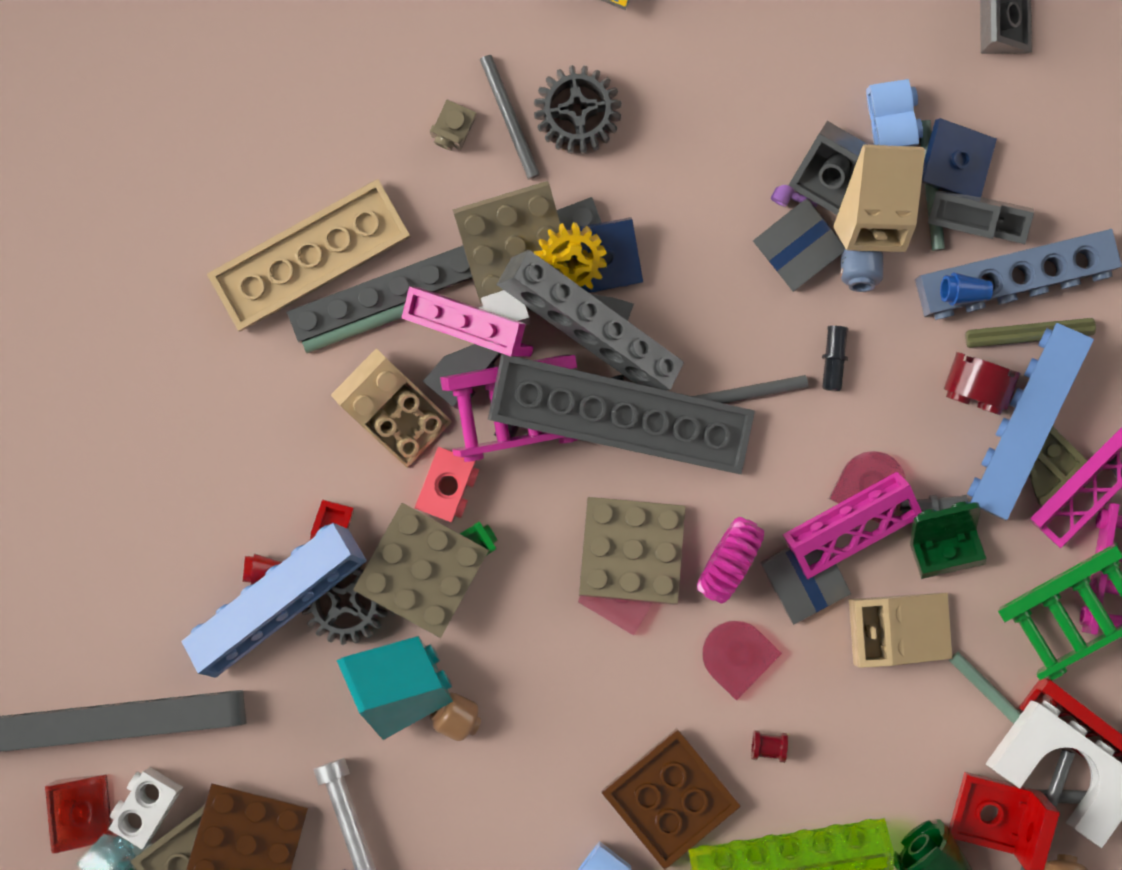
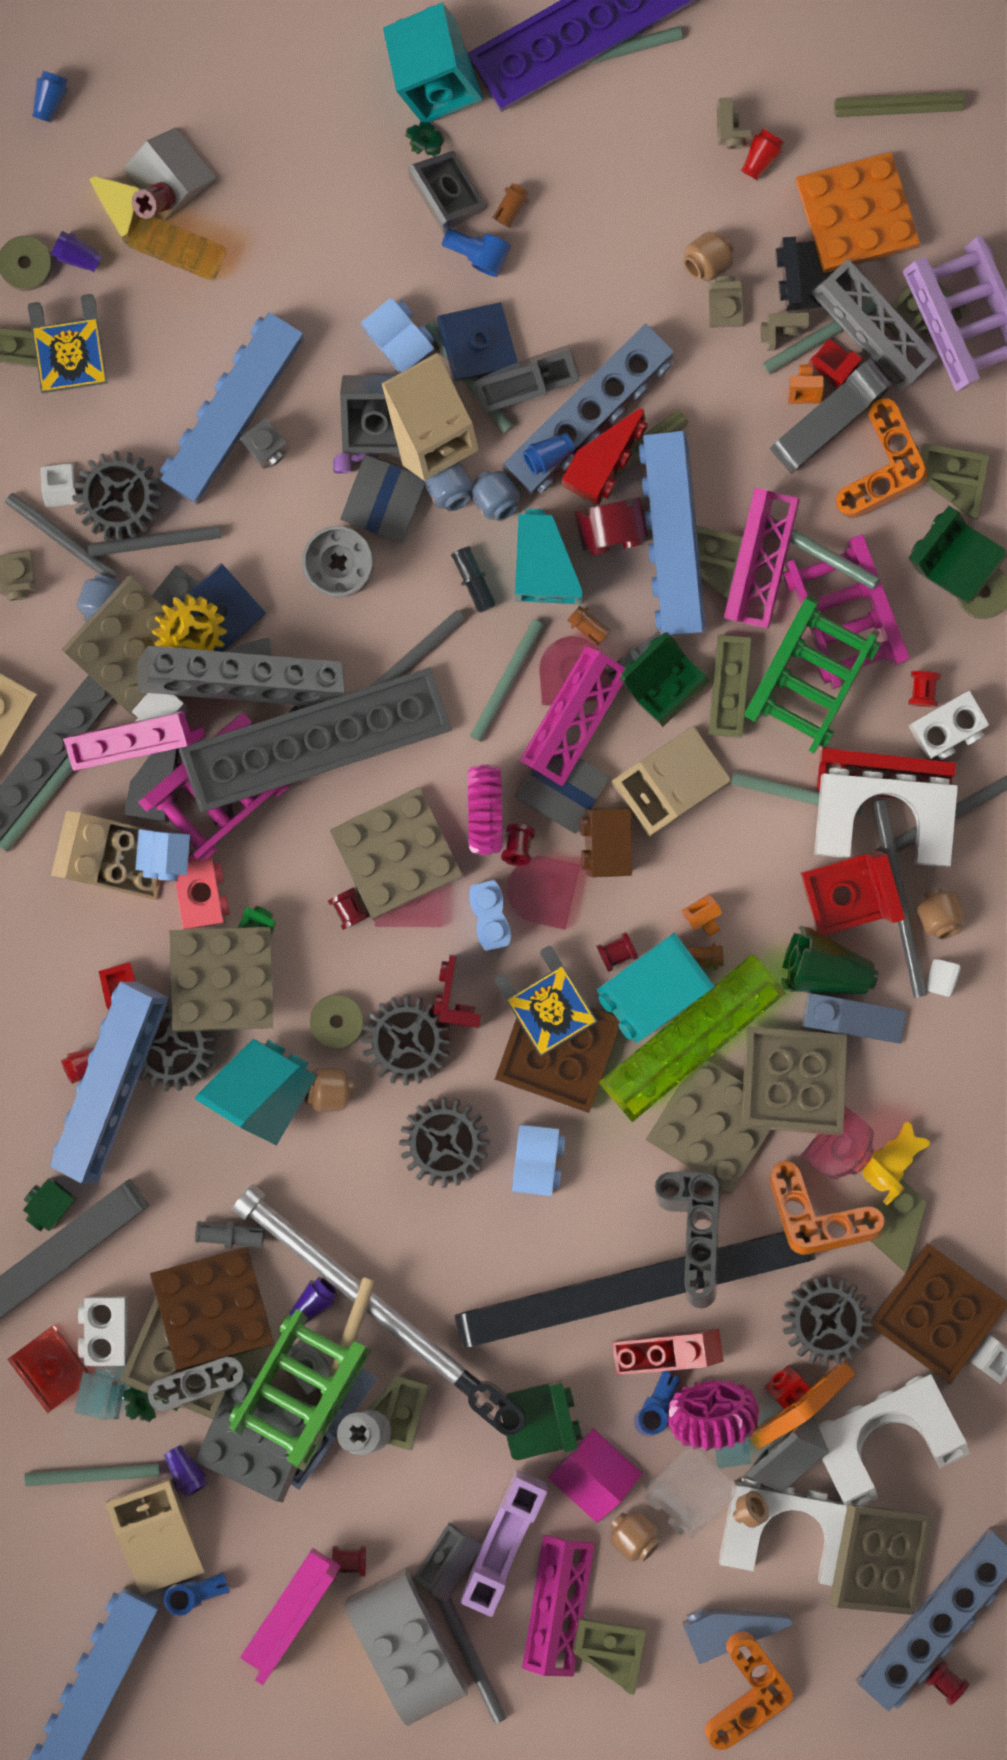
camera: 30 degrees left, 0 degrees up
(161, 671) = (47, 1204): none -> dark green brick
(299, 788) = (229, 1234): none -> dark grey pin
(434, 434) = (162, 854): none -> light blue brick
(497, 677) = (351, 1026): none -> olive piece
(508, 180) = (94, 594): none -> sand blue head
(513, 826) = (453, 1129): none -> dark grey gear
(533, 71) = (58, 485): none -> white slope
(560, 708) = (397, 1052): none -> dark grey gear
(563, 573) = (347, 908): none -> dark red bush
(585, 166) = (154, 541): none -> dark grey bar
(607, 723) = (463, 1014): none -> dark red bracket
(683, 642) = (487, 906): none -> light blue brick
(684, 760) = (550, 1007): none -> flag
(718, 92) = (232, 408): none -> medium blue brick
(727, 139) = (265, 444): none -> flat silver brick
(740, 605) = (518, 844): none -> dark red bush
(743, 260) = (343, 542): none -> light grey wheel
(785, 800) = (654, 988): none -> teal slope
(812, 460) = (507, 680): none -> sand green bar
(817, 649) = (606, 842): none -> reddish brown brick
(839, 794) = (708, 955): none -> dark orange pin
(861, 758) = (702, 915): none -> orange tile
(896, 298) = (495, 495): none -> sand blue head
(905, 379) = (543, 563): none -> teal slope
(909, 454) = (588, 625): none -> dark orange pin
(998, 578) = (729, 686): none -> olive plate
(1004, 320) = (598, 461): none -> red slope
(1007, 89) = (485, 253): none -> blue pin
(1053, 62) = (510, 205): none -> dark orange pin

